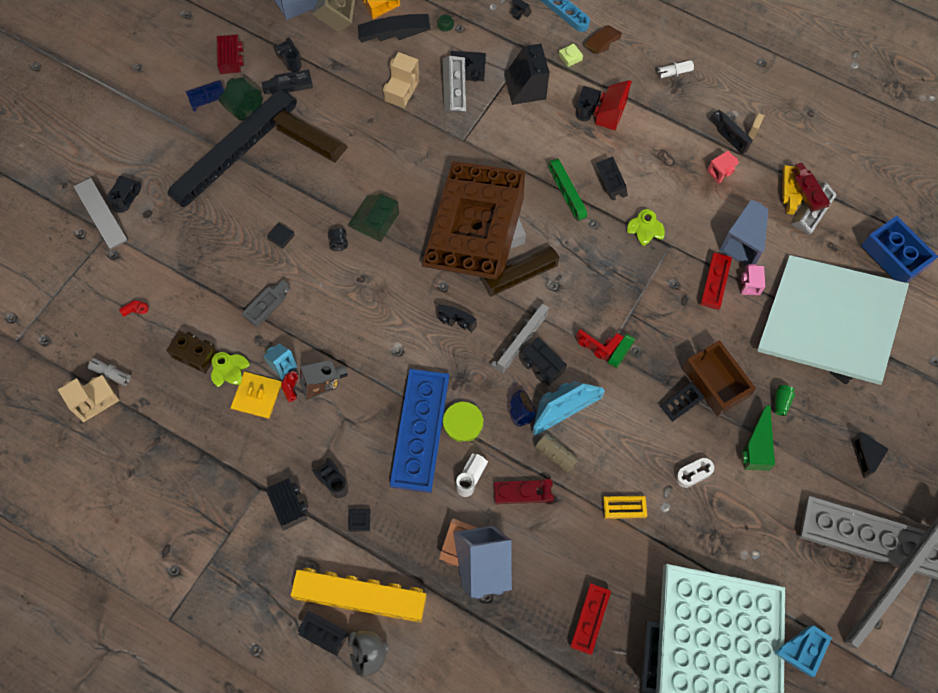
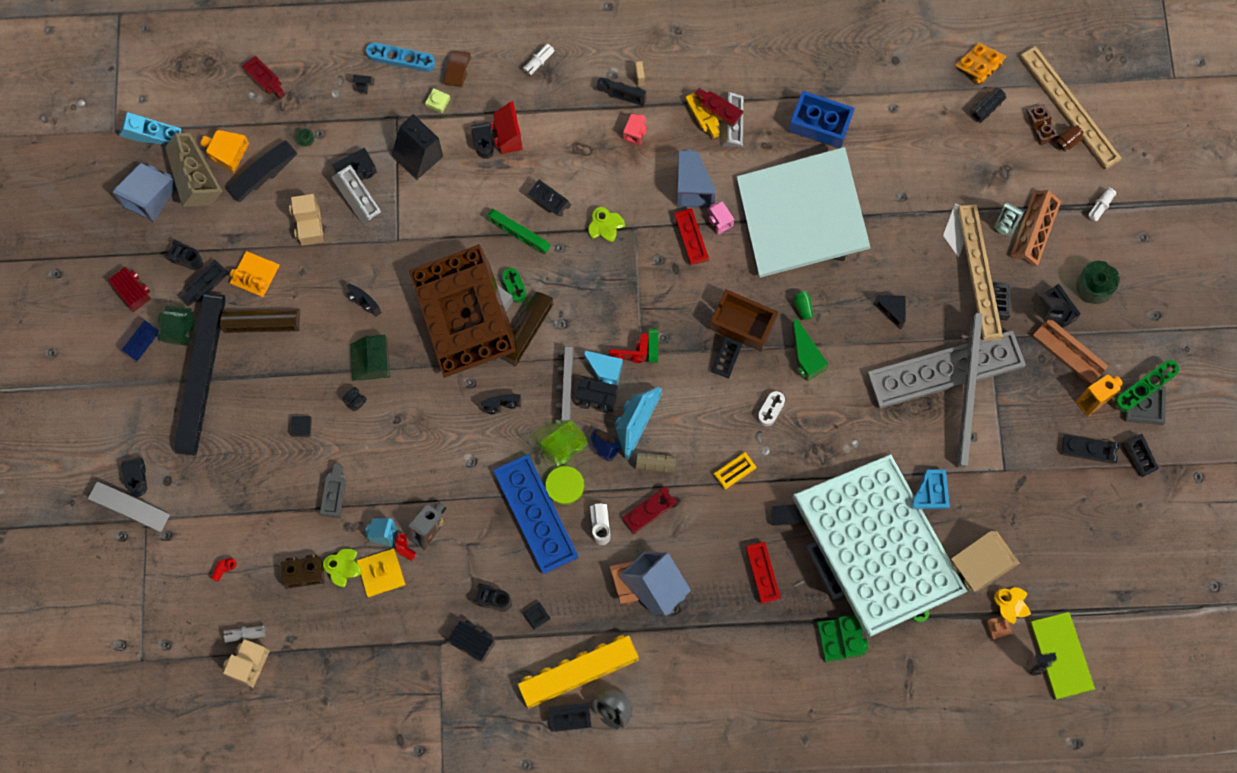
camera: 30 degrees left, 5 degrees up
(331, 99) = (254, 274): none -> light orange hinge
(402, 167) = (361, 297): none -> black slope
(486, 384) = (564, 443): none -> clear neon green brick
(531, 229) = (518, 284): none -> green beam
(566, 342) = (604, 367): none -> medium azure slope
(647, 579) = (786, 515): none -> black slope

